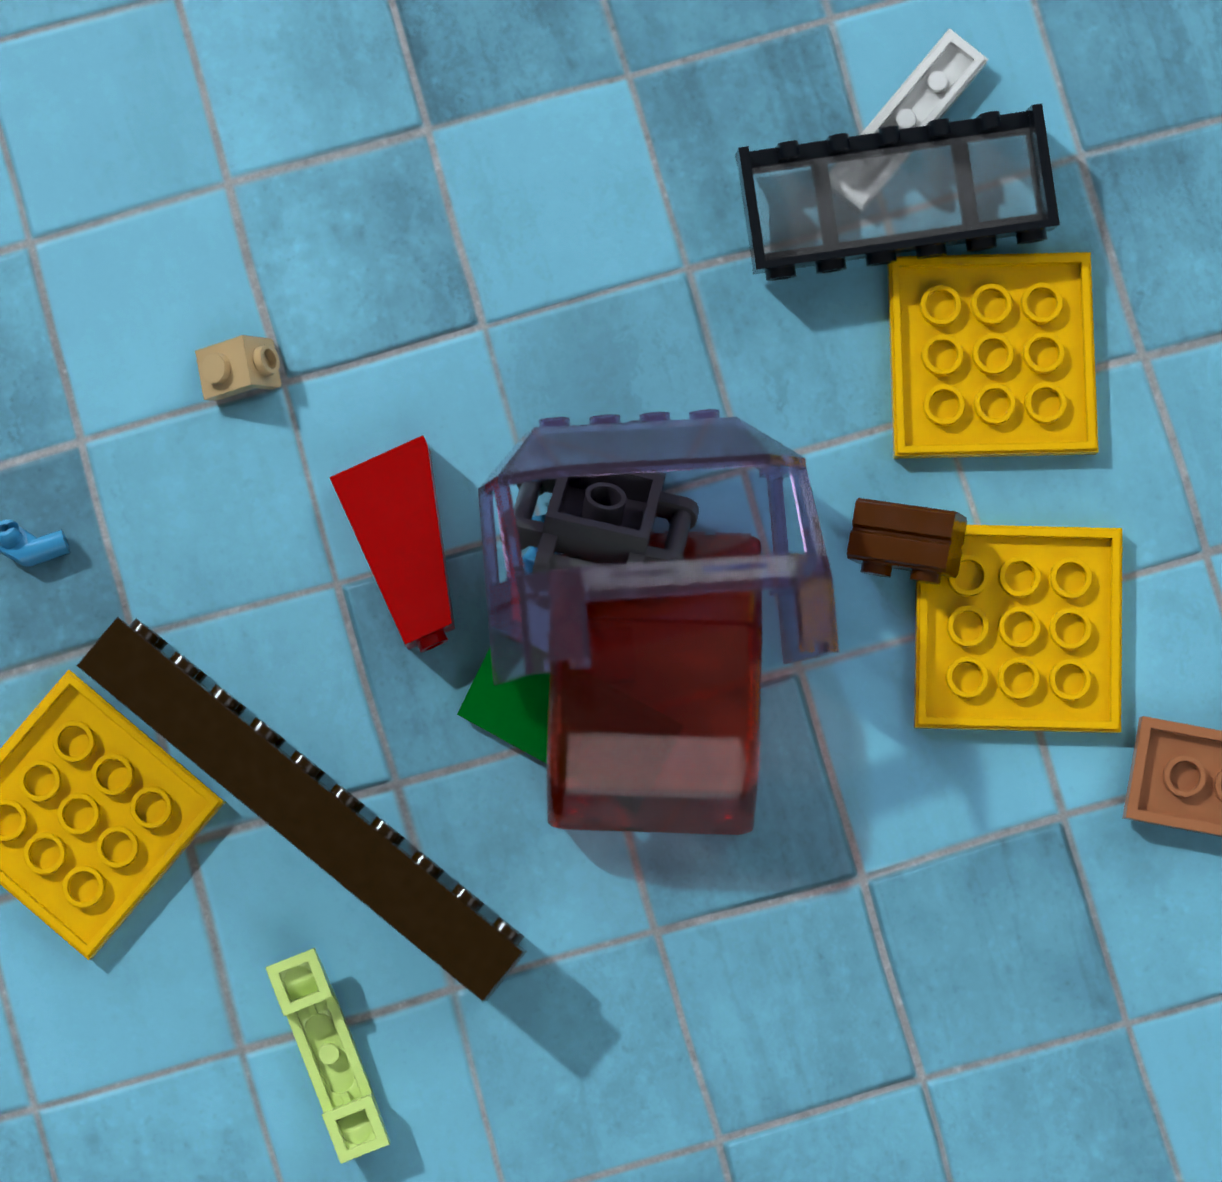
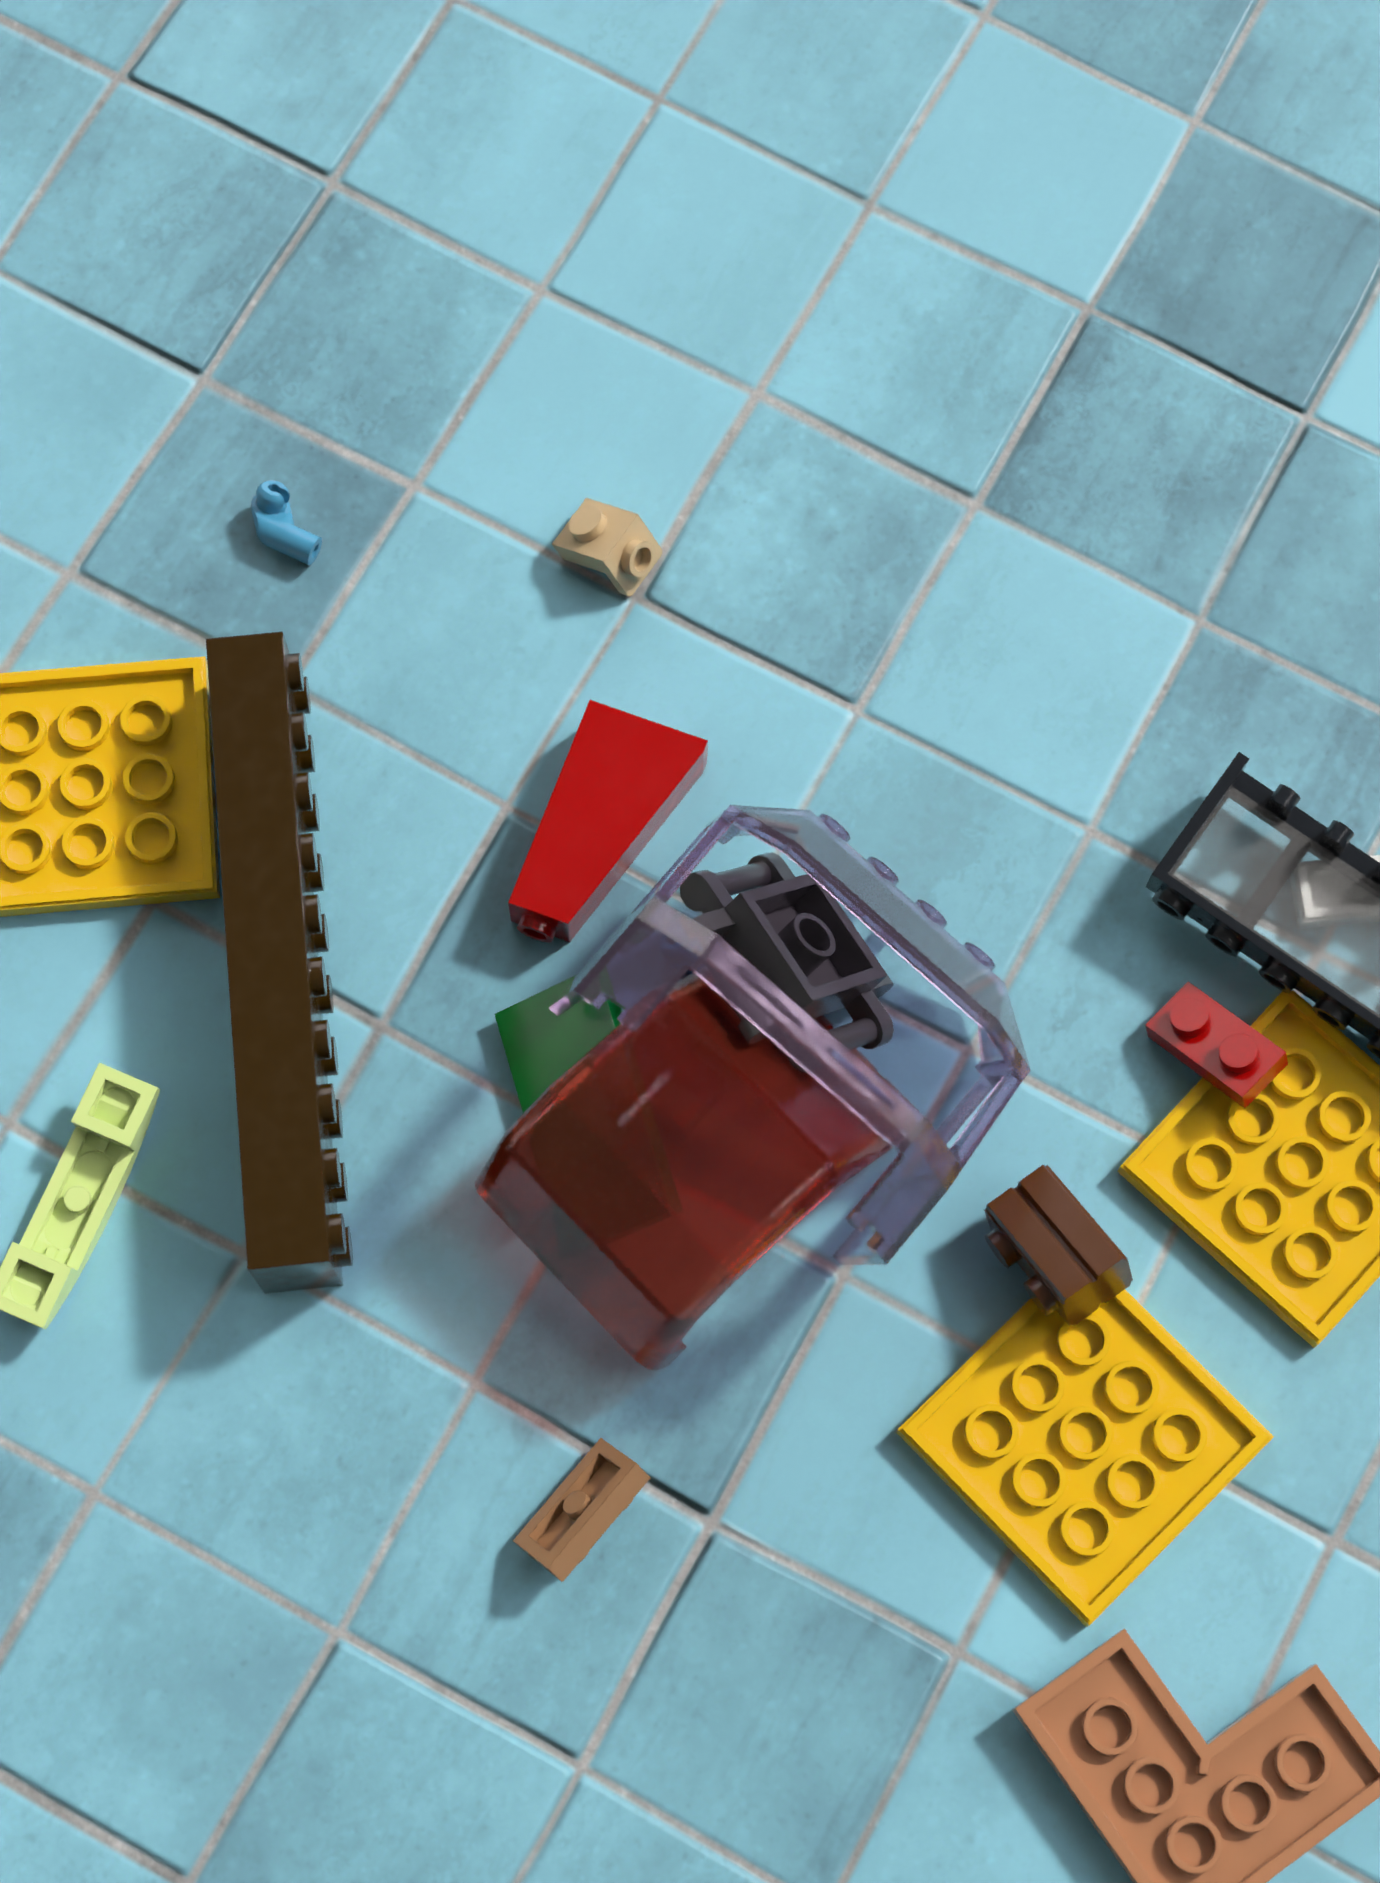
camera: 40 degrees right, 10 degrees down
(788, 943) = (581, 1509): none -> medium nougat plate
(882, 332) = (1216, 1044): none -> red plate

